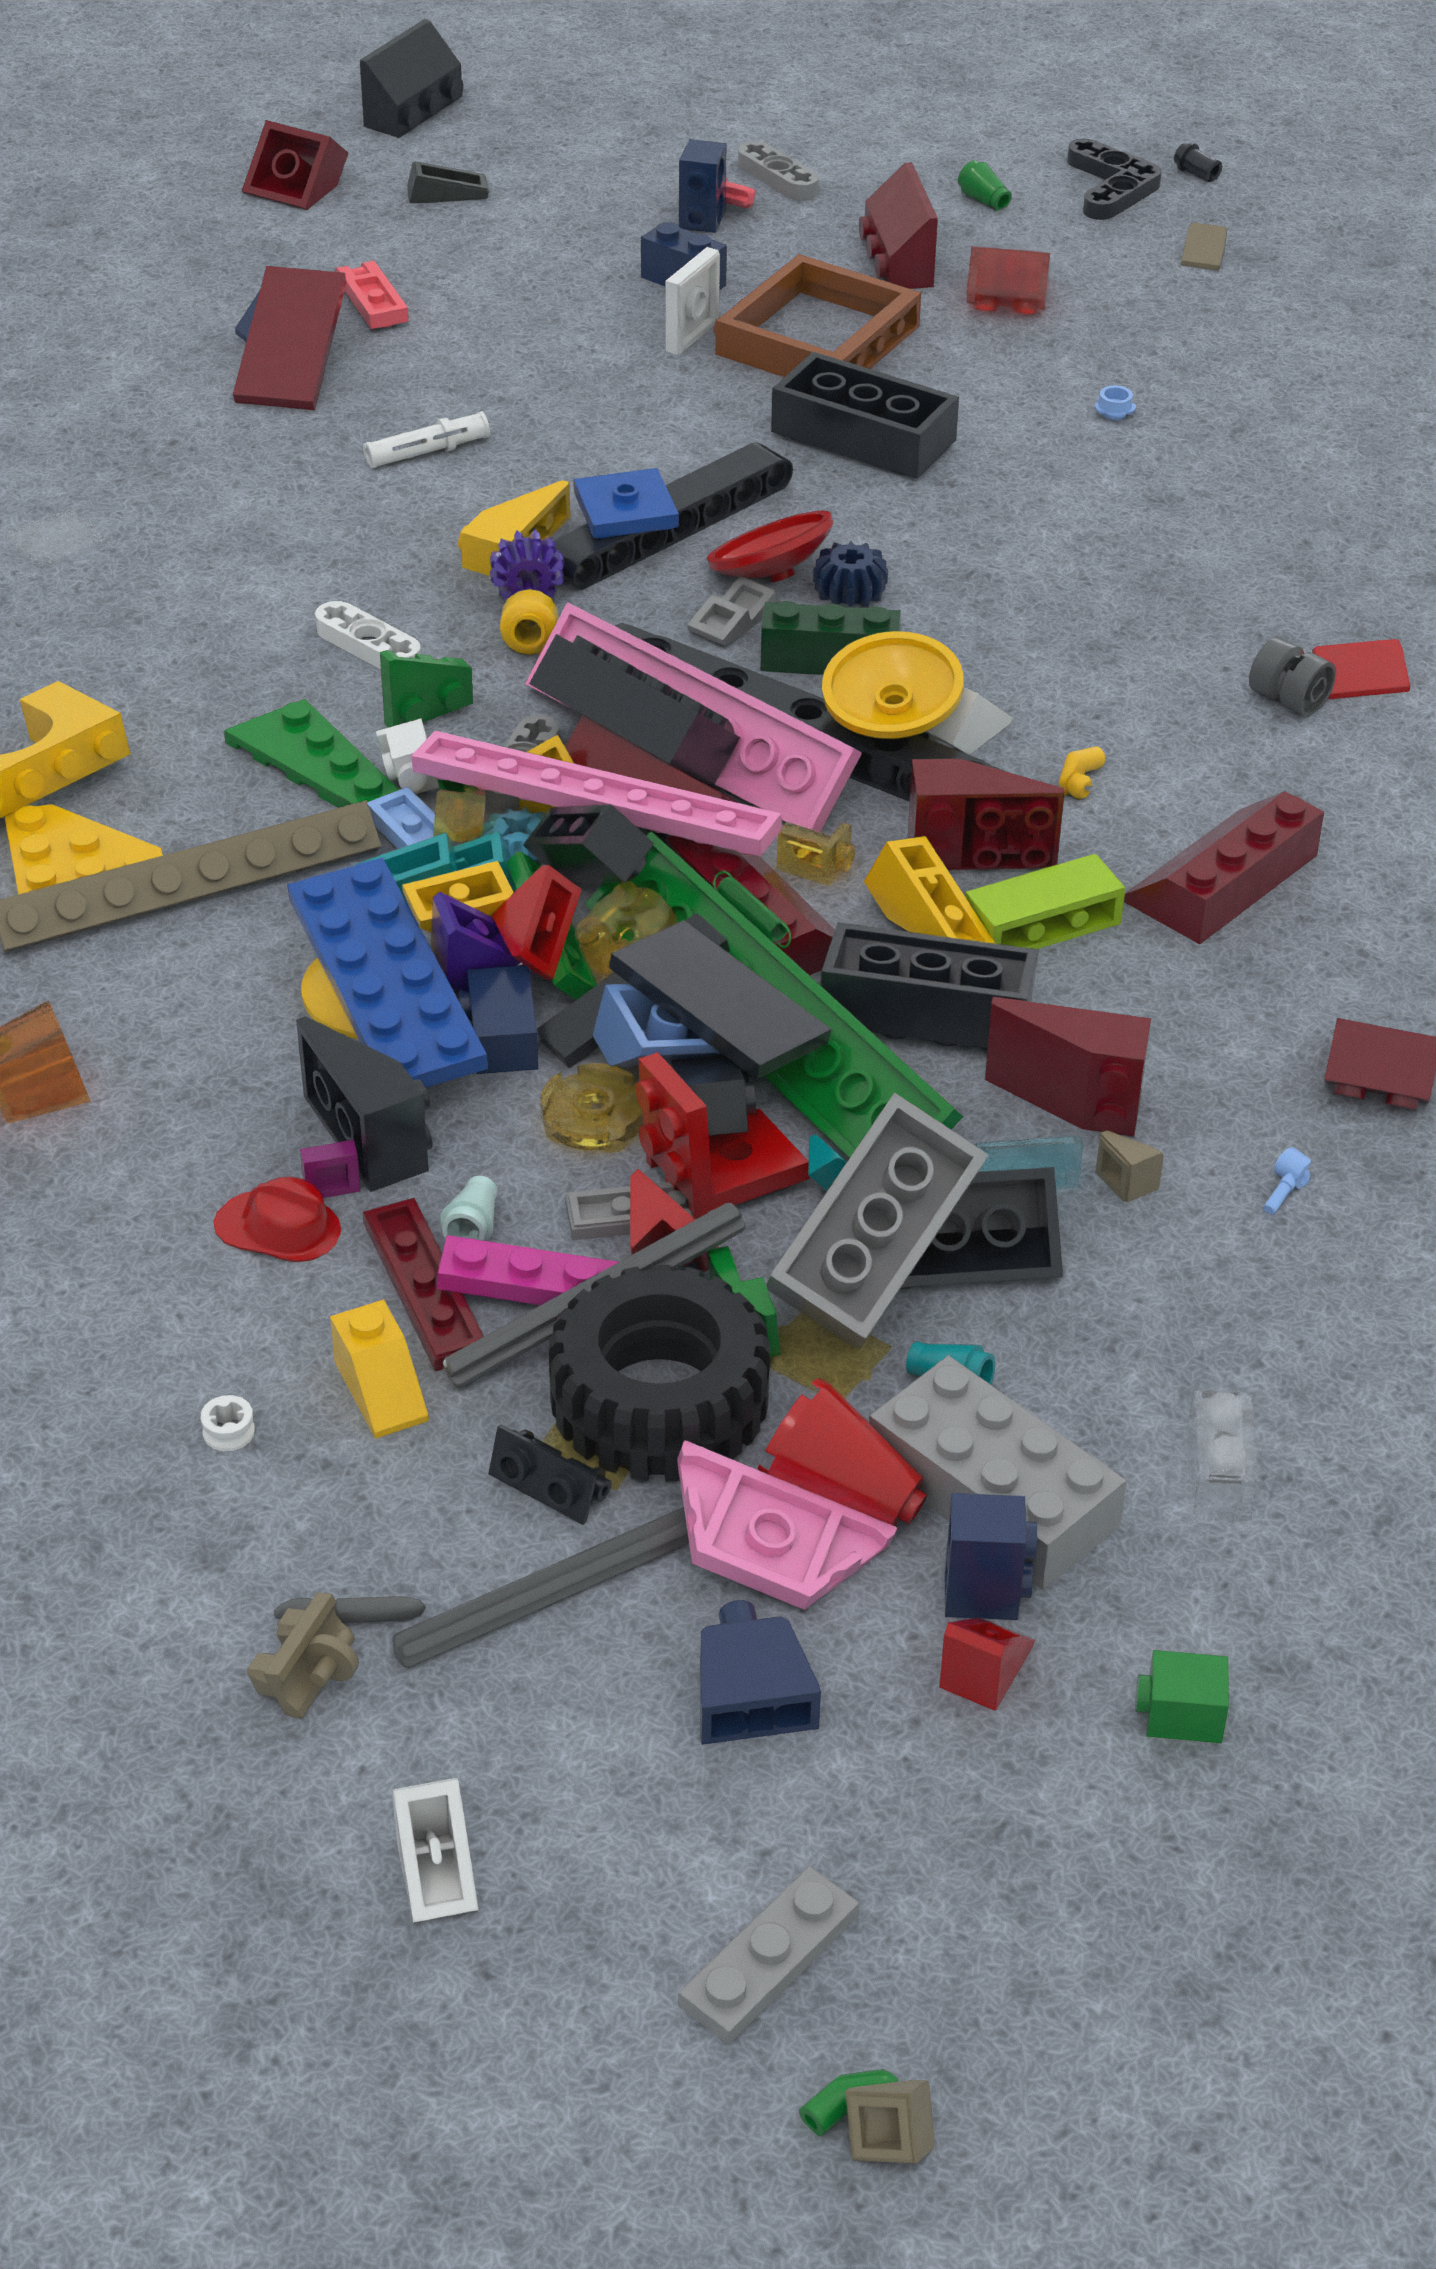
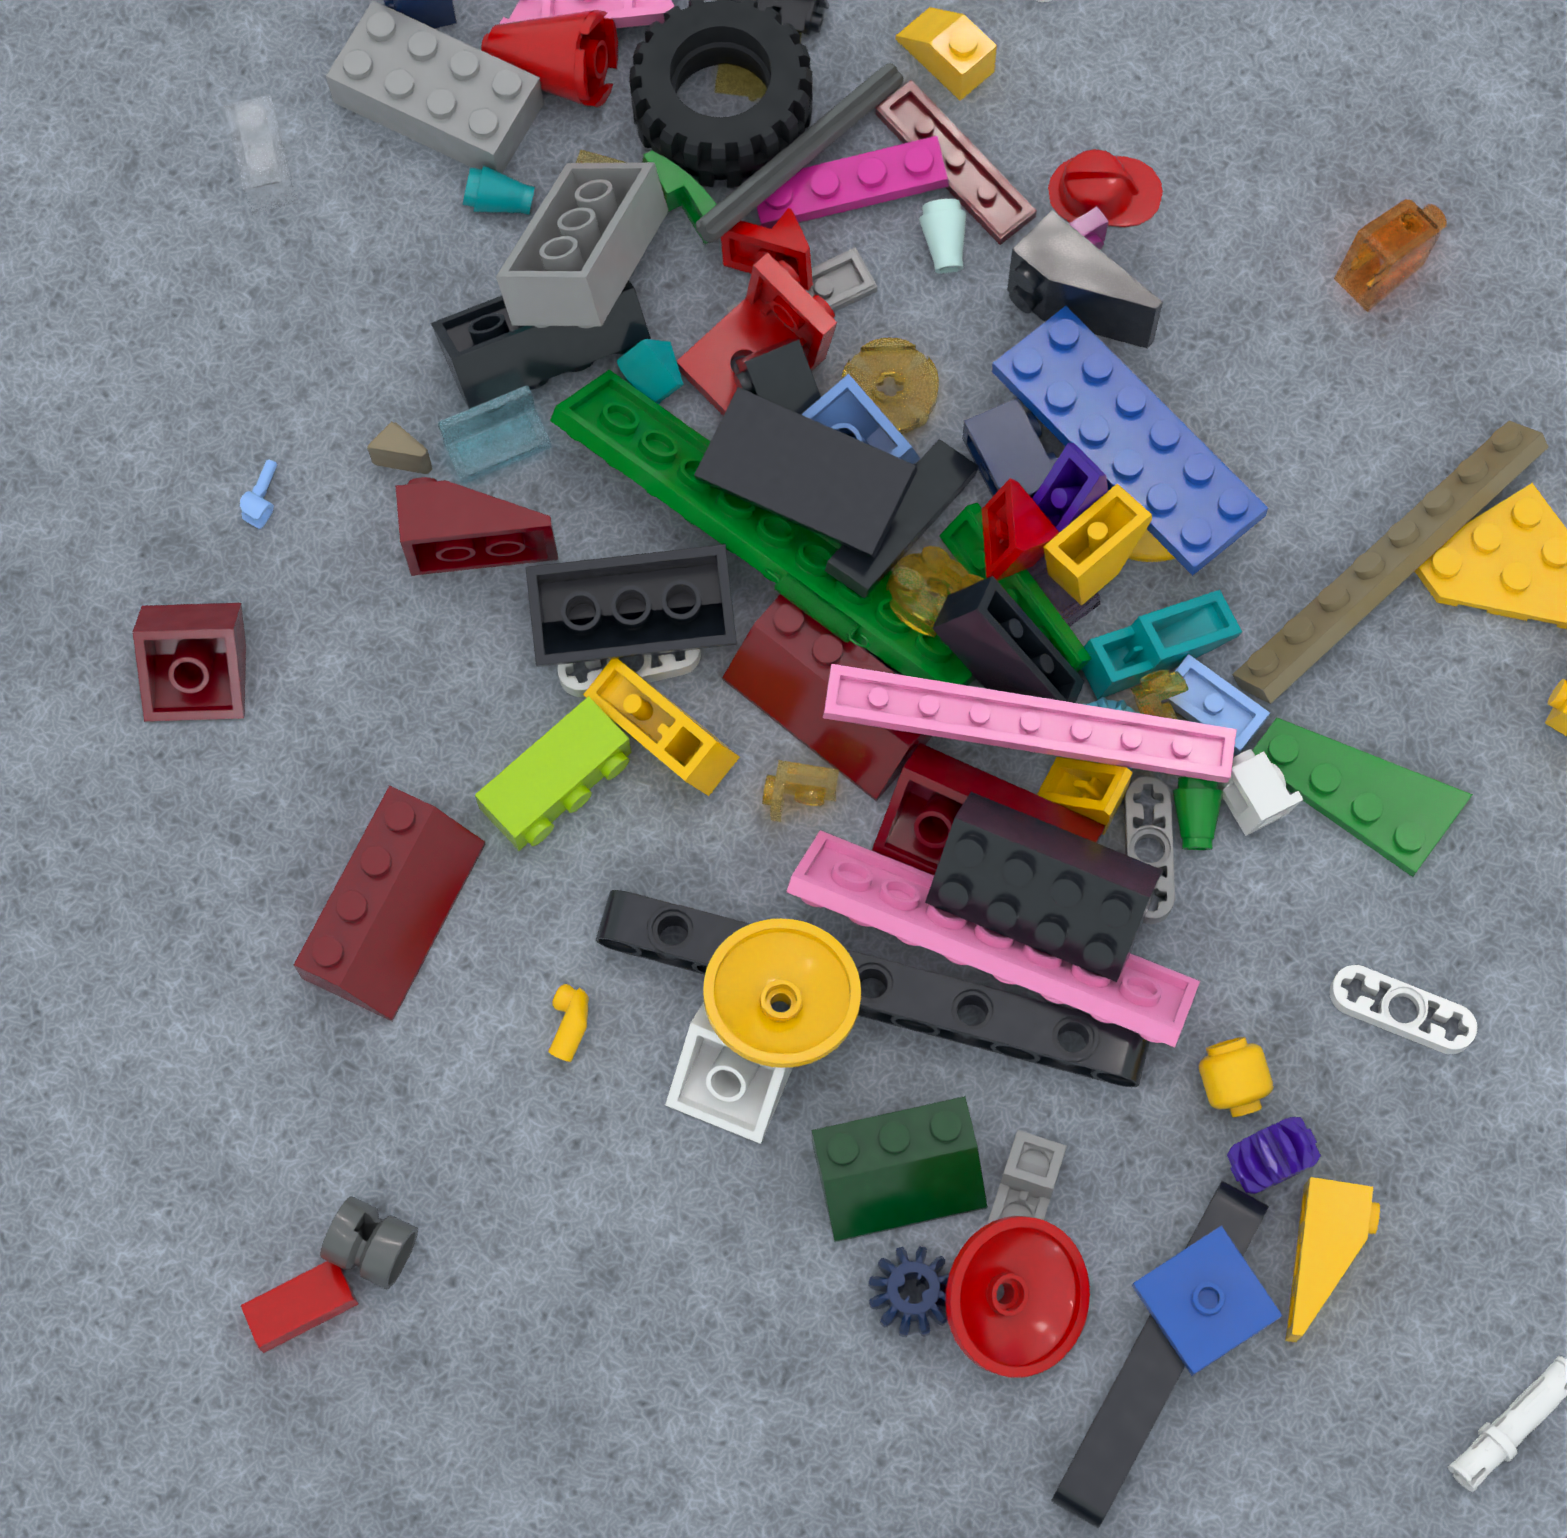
camera: 165 degrees right, 30 degrees up
(423, 687) = (1297, 891): green wing -> none
(984, 815) = (650, 853): dark red slope -> none

